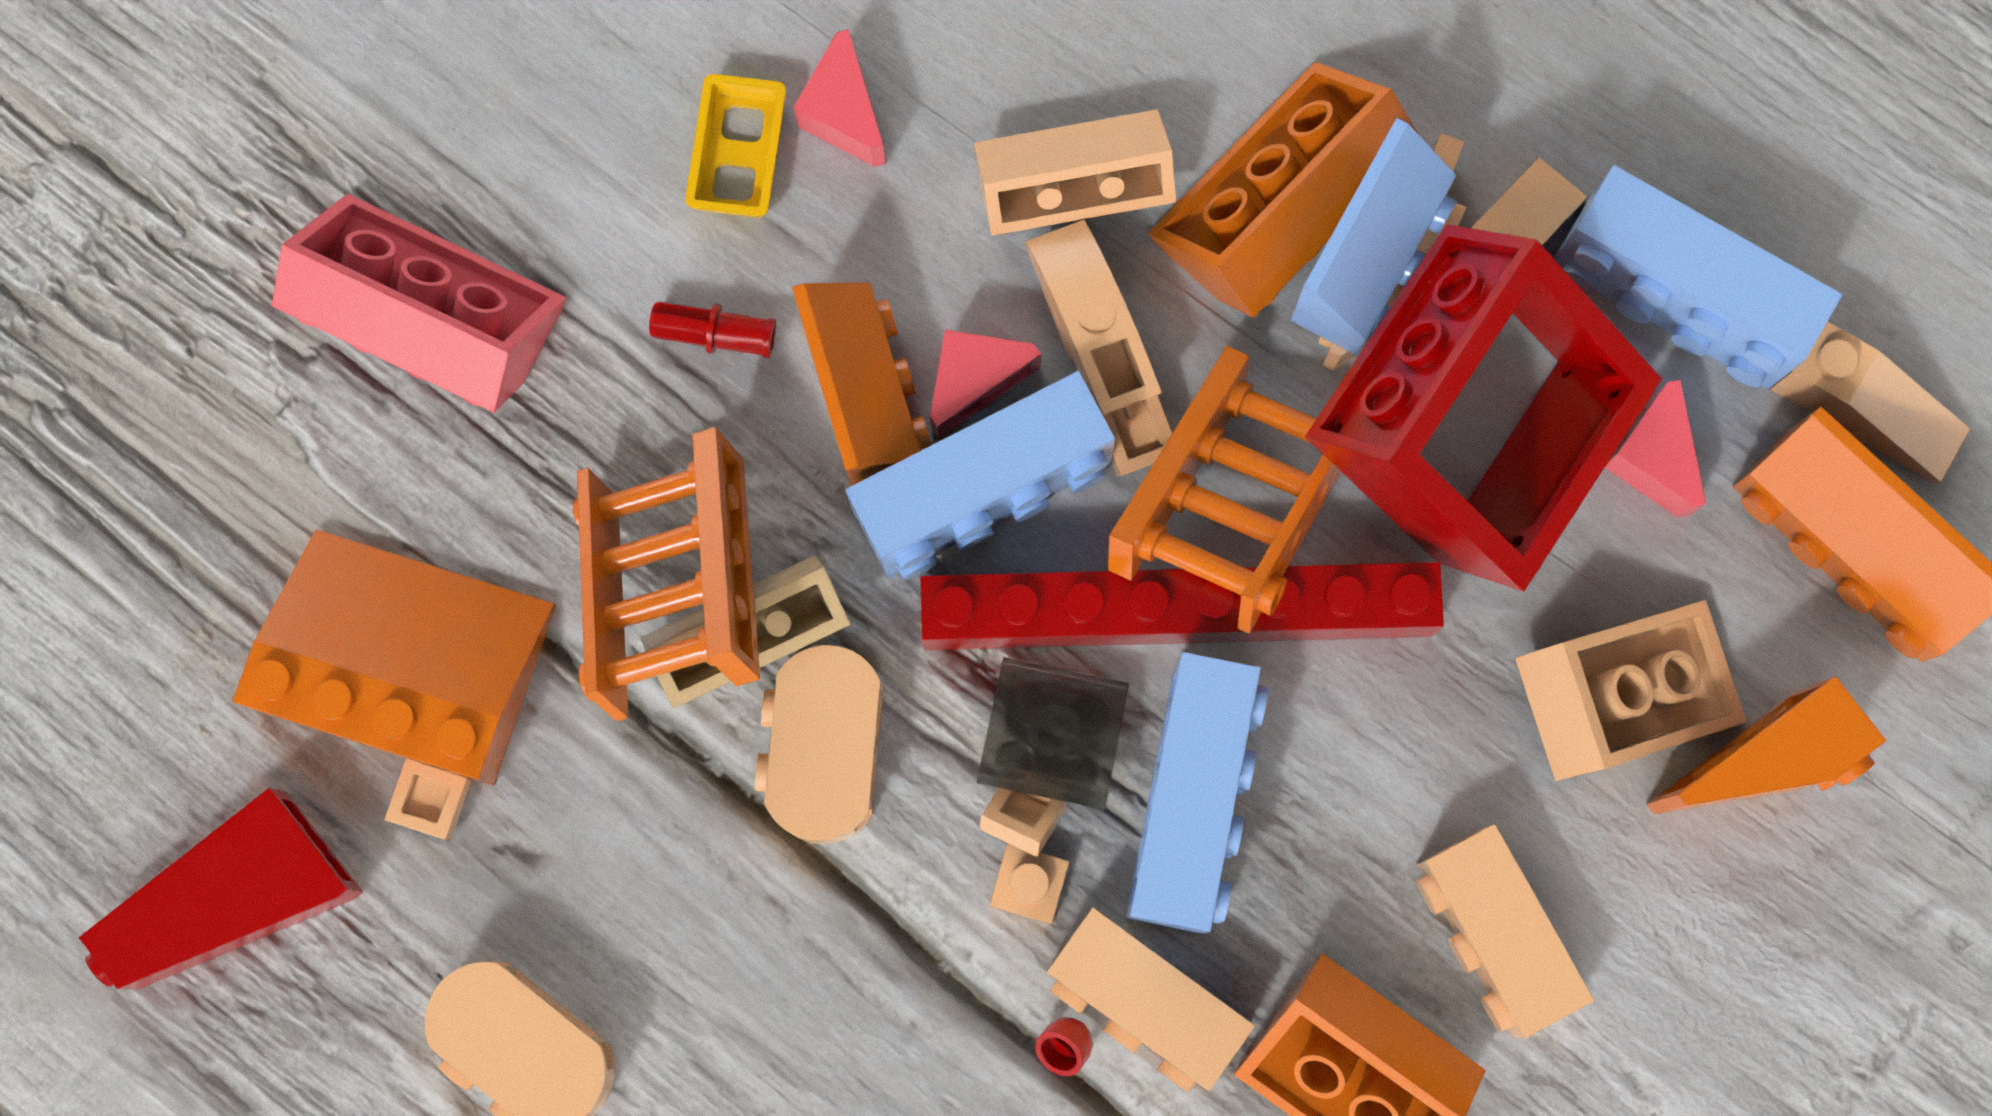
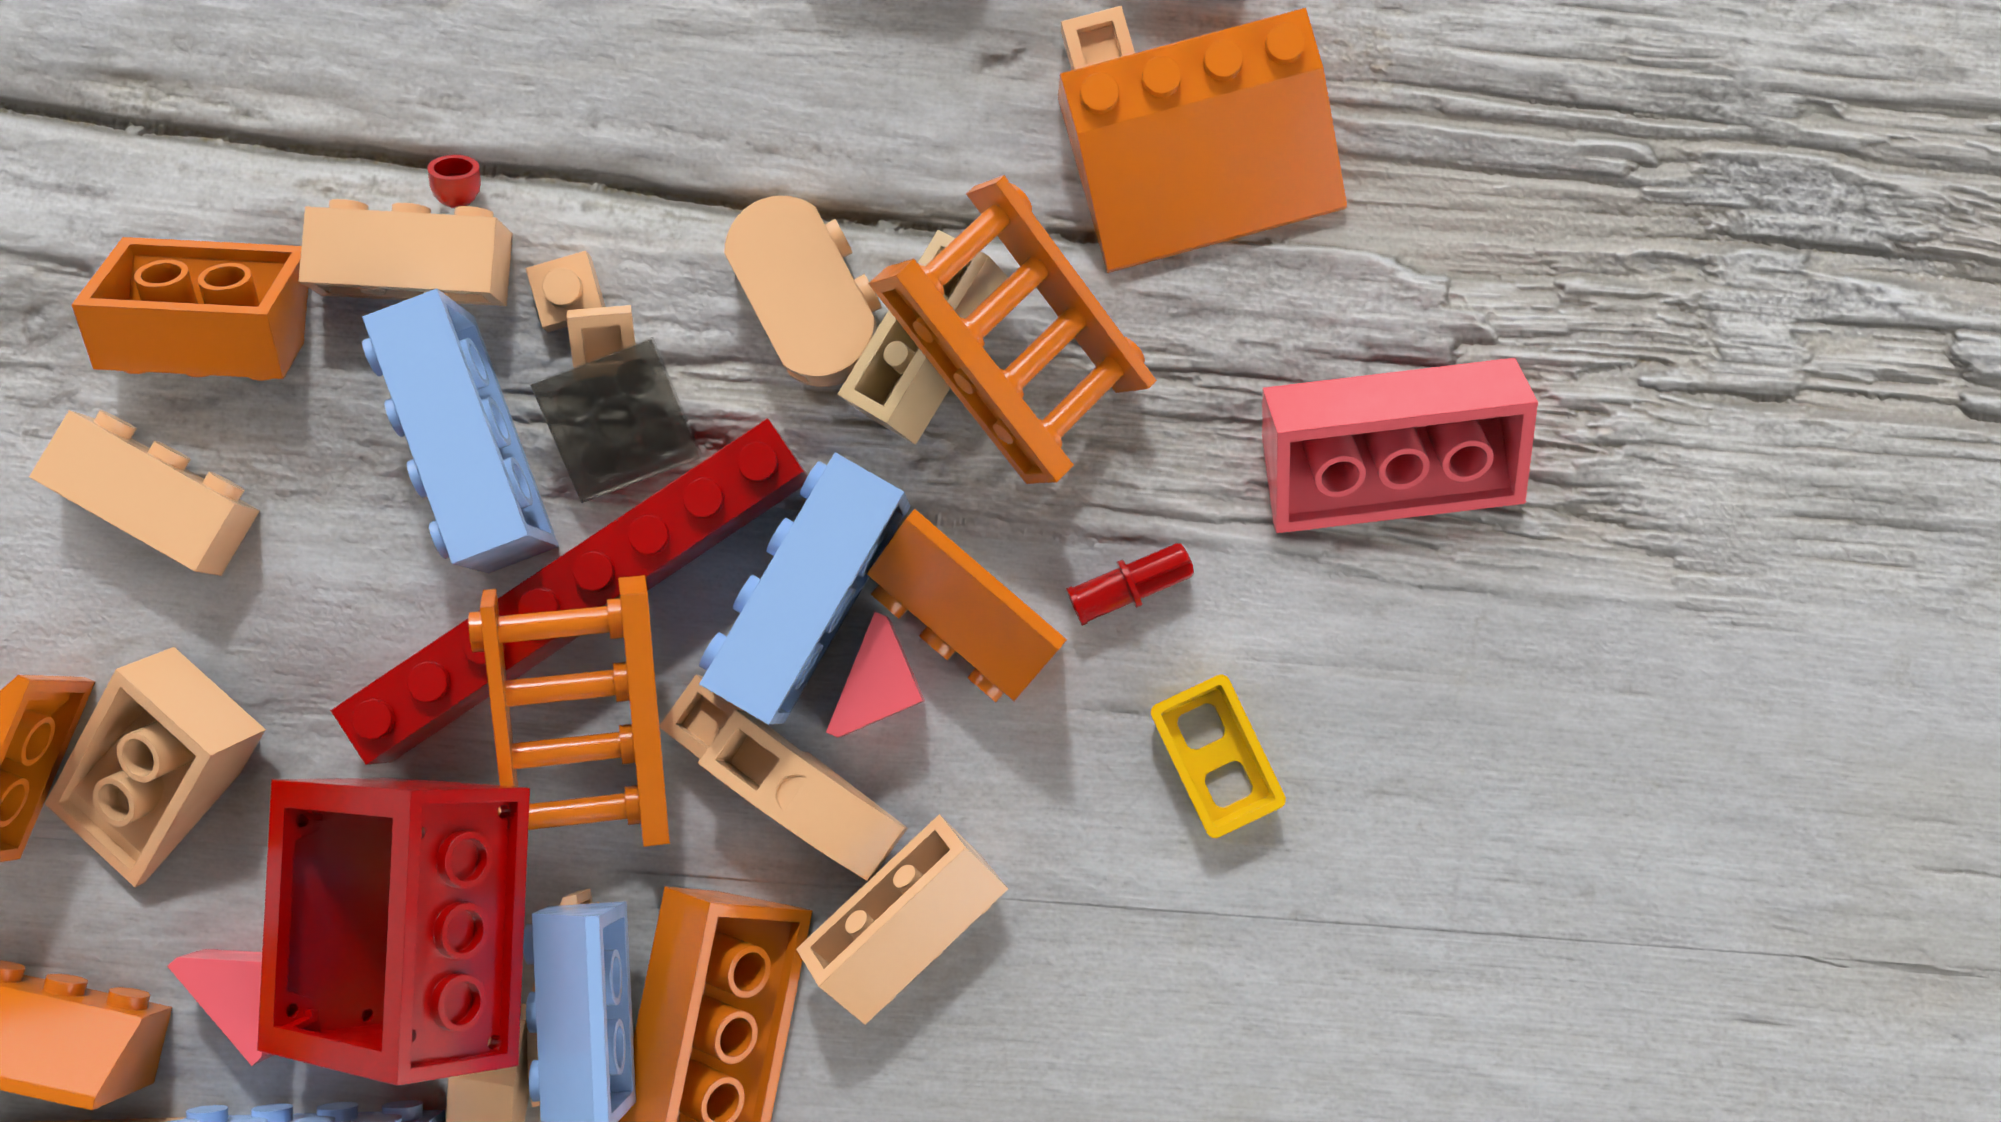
camera: 145 degrees right, 5 degrees up
(838, 104) = (1152, 851): coral slope -> none

